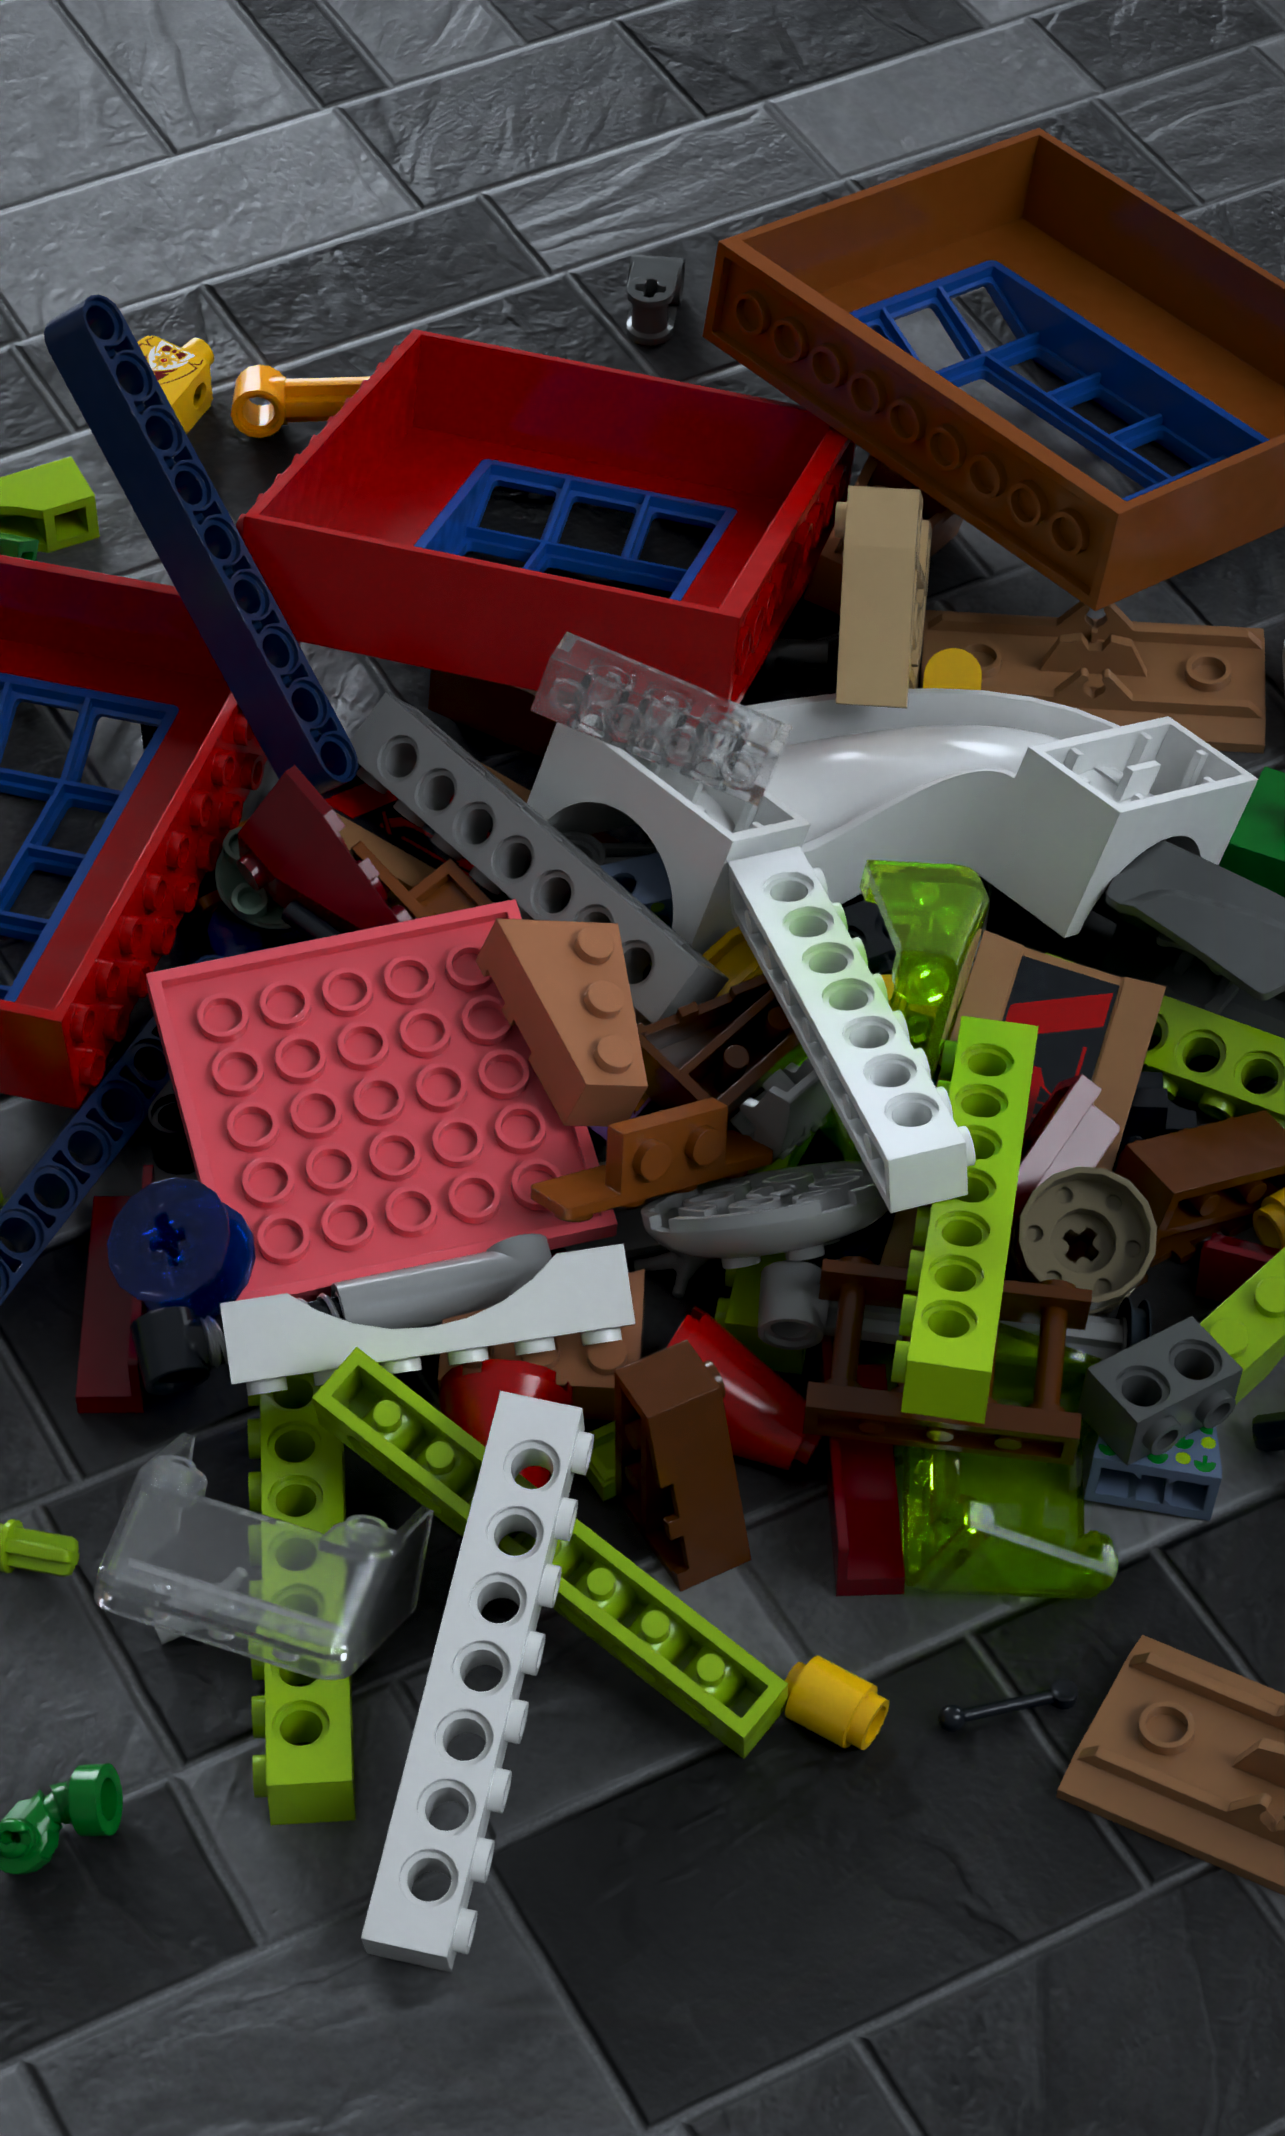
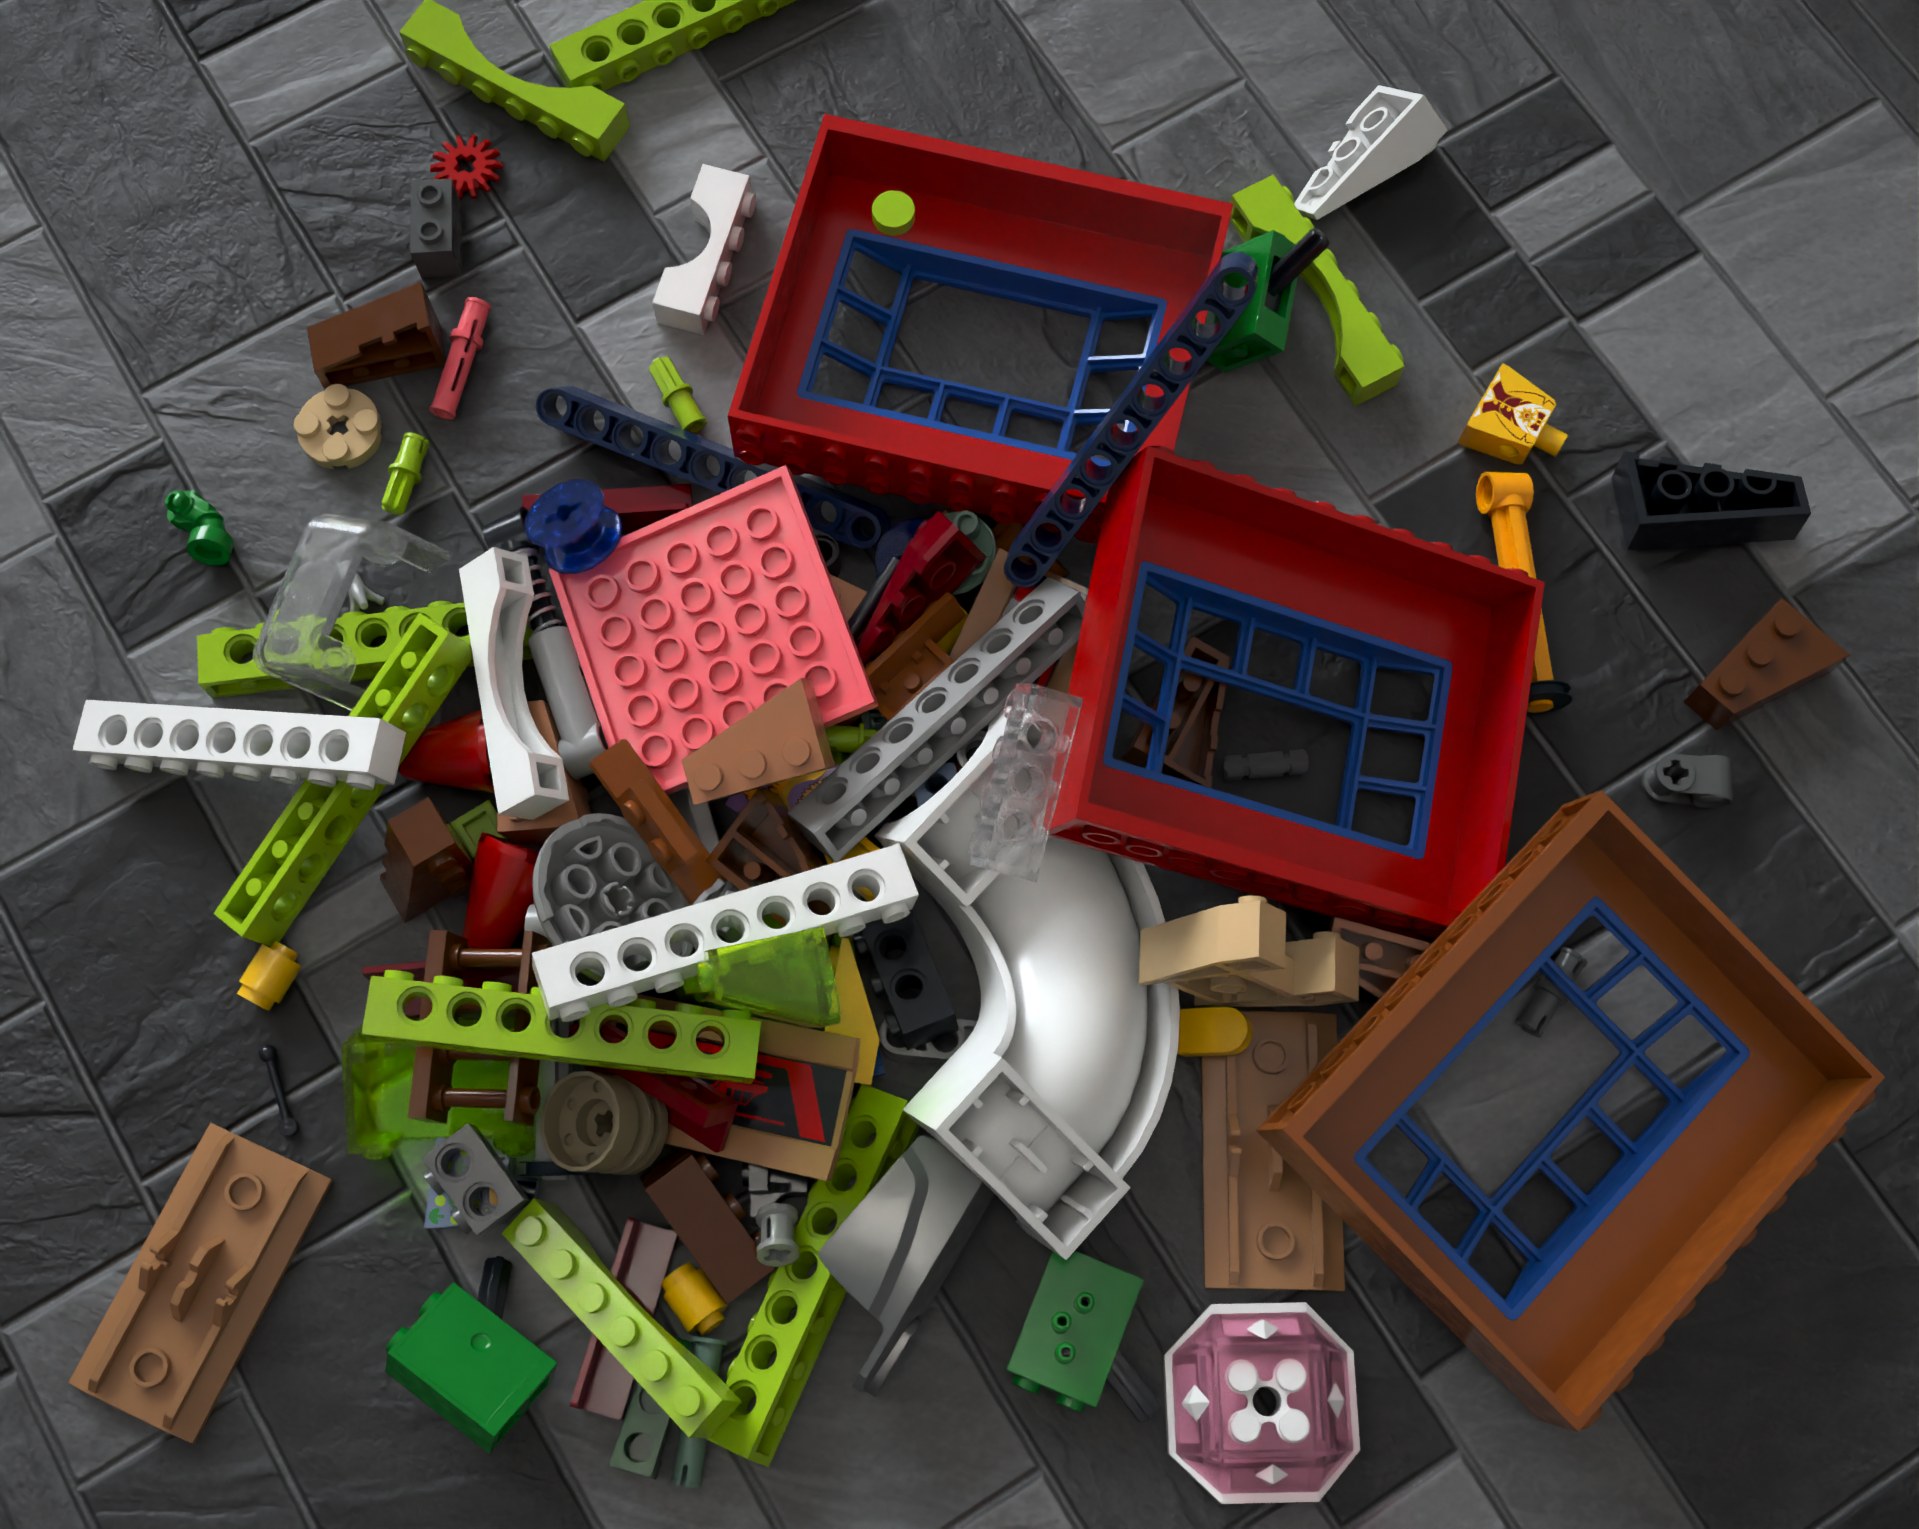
camera: 85 degrees right, 25 degrees up
(304, 252) = (1698, 506): none -> black wedge
(518, 223) = (1766, 664): none -> reddish brown wedge
(1223, 1089) = (777, 1234): none -> light grey bush

